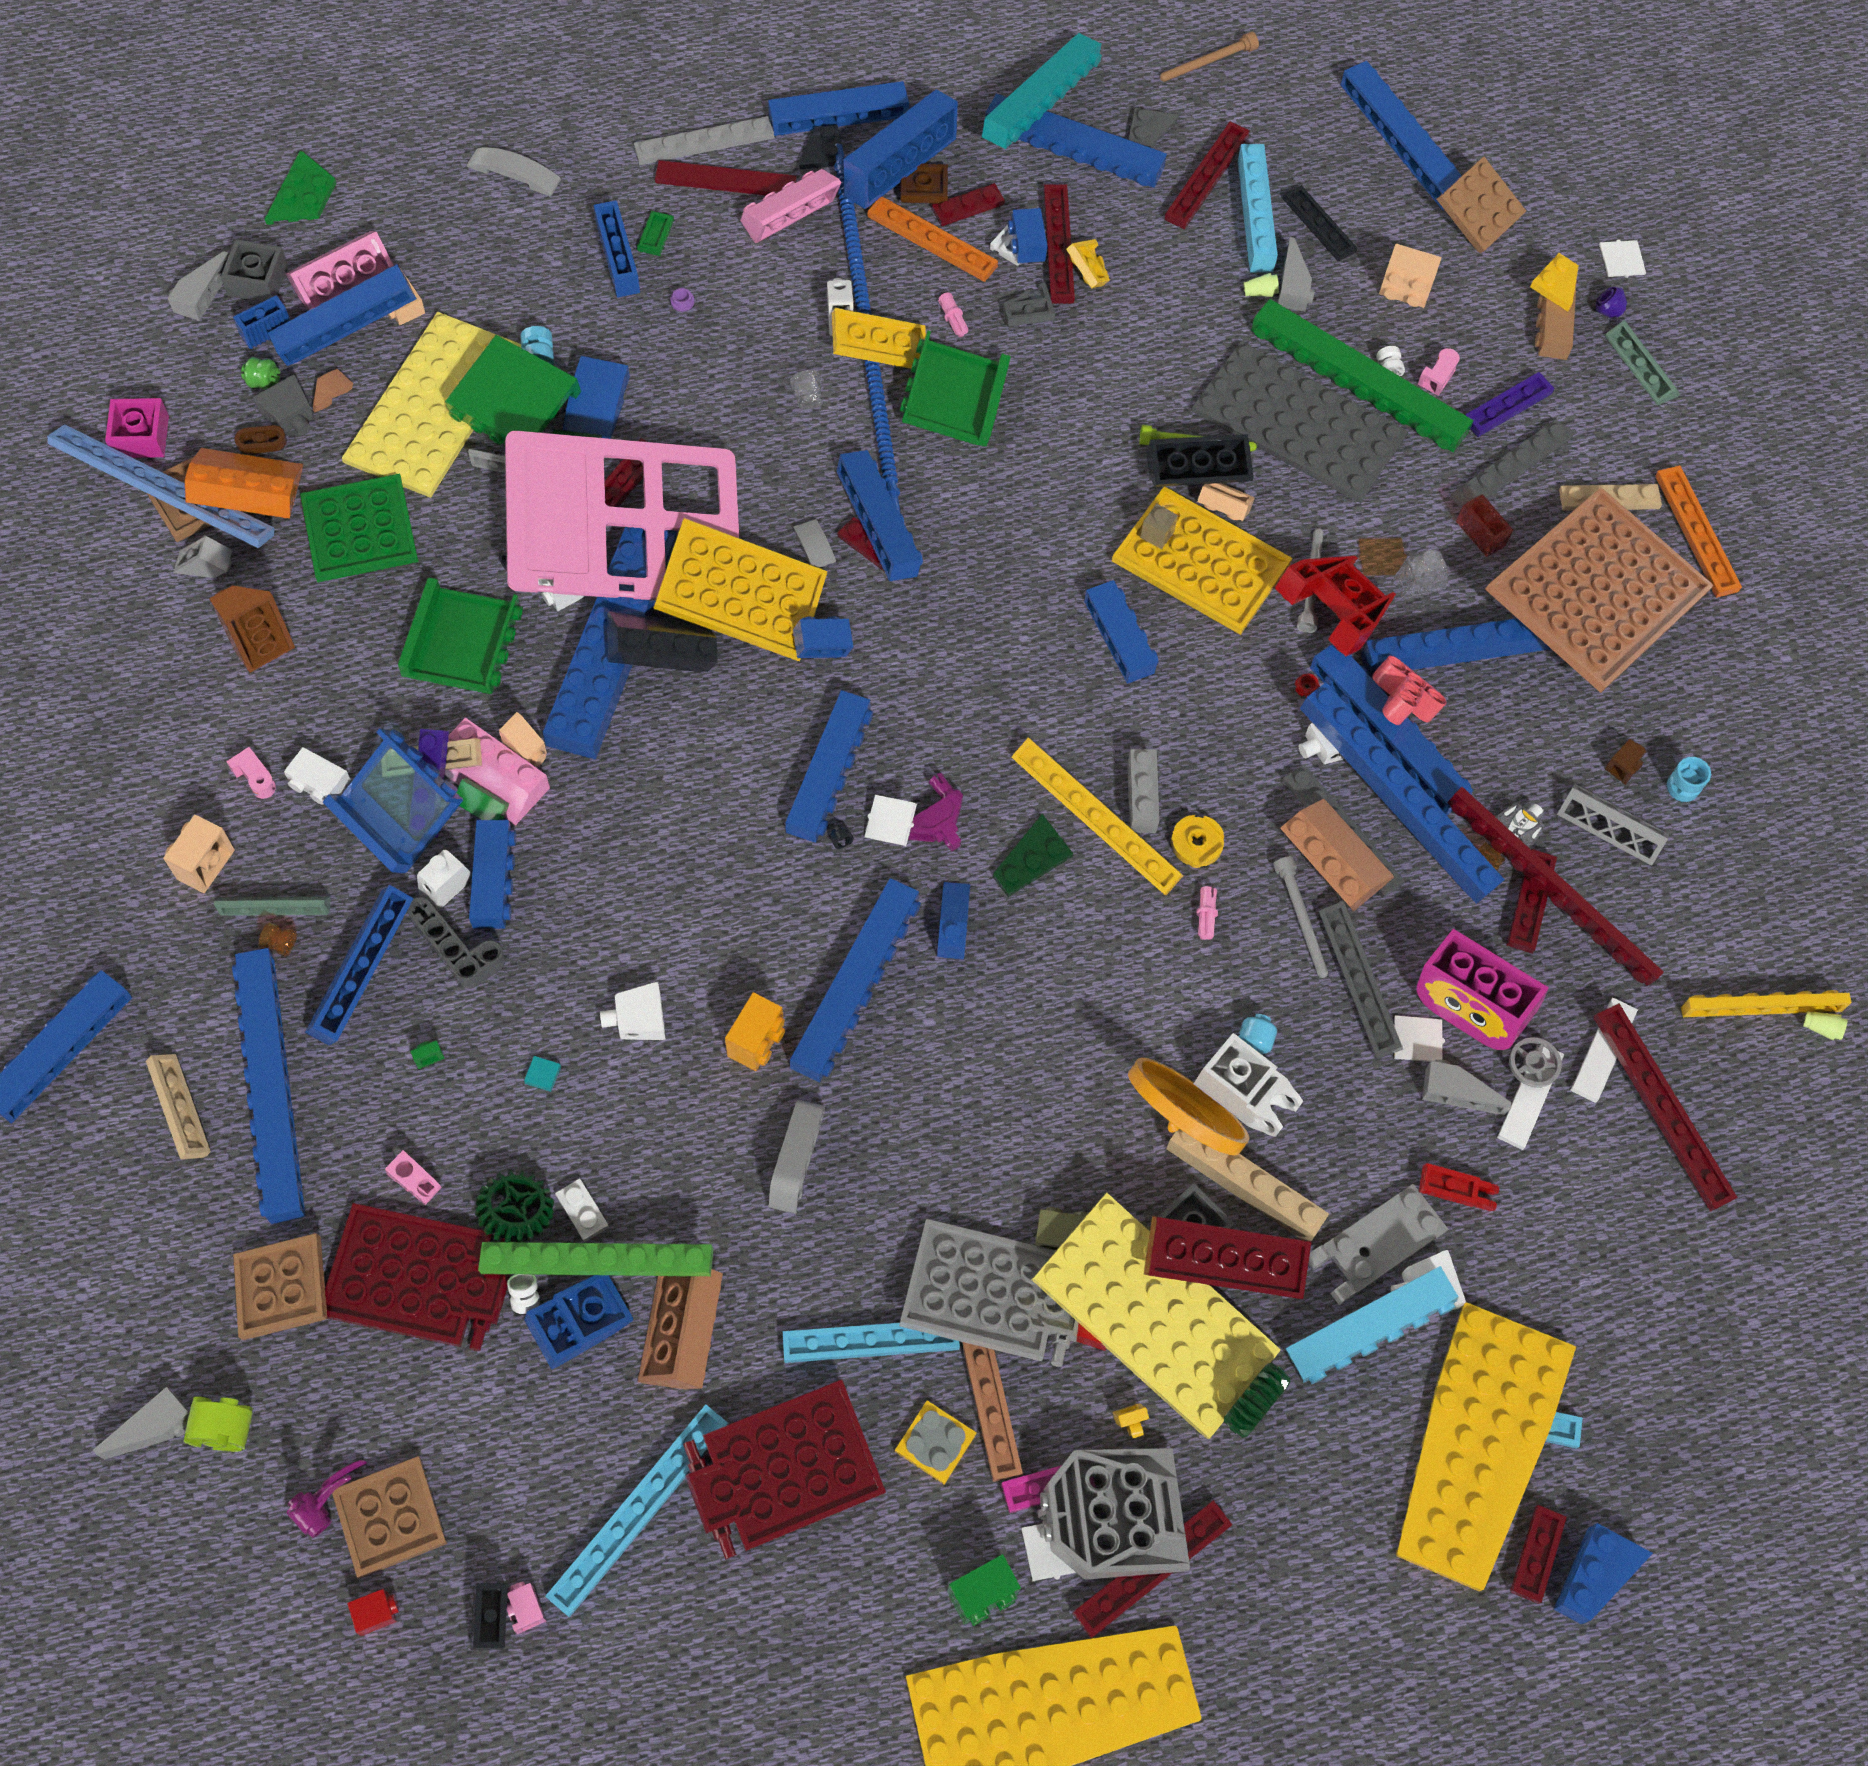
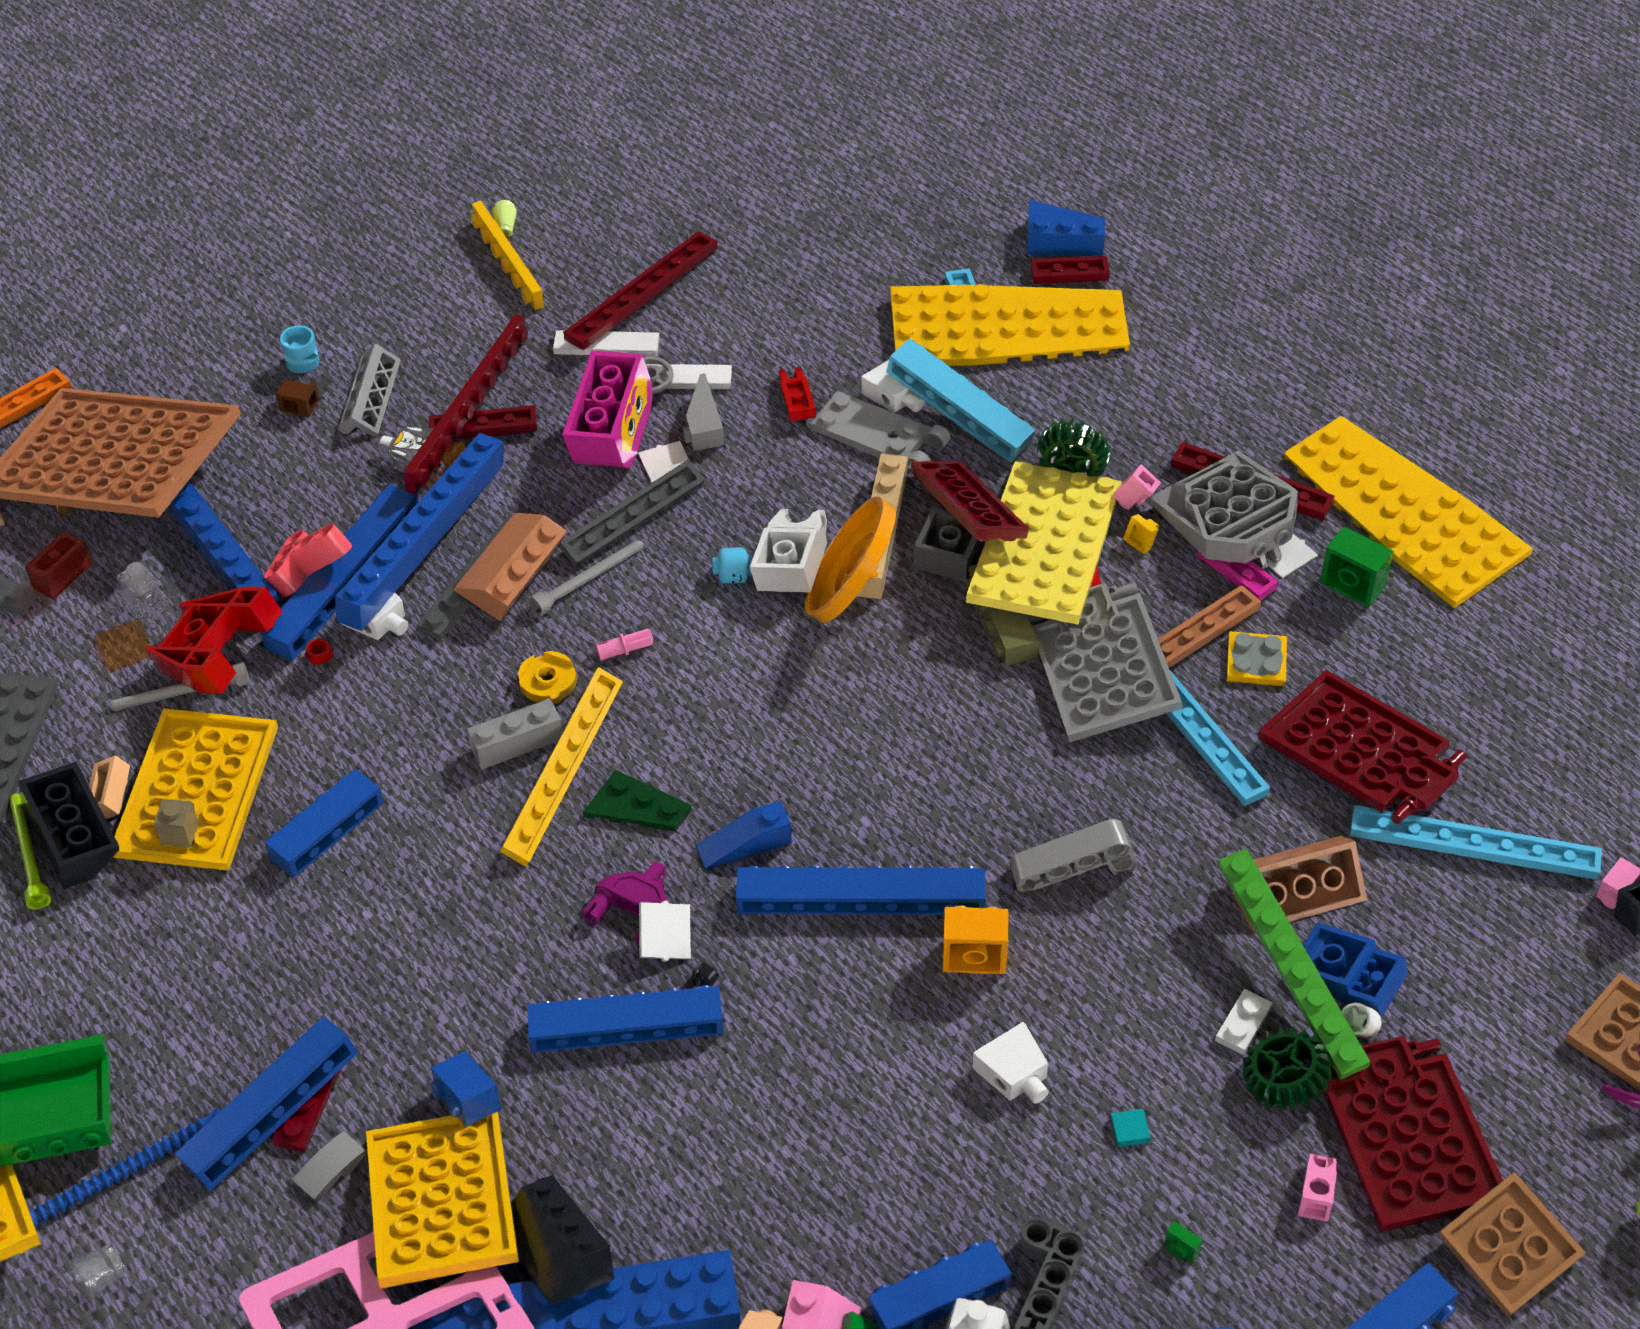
camera: 110 degrees left, 15 degrees down
(1185, 1439) = (1136, 488): none -> bright pink brick

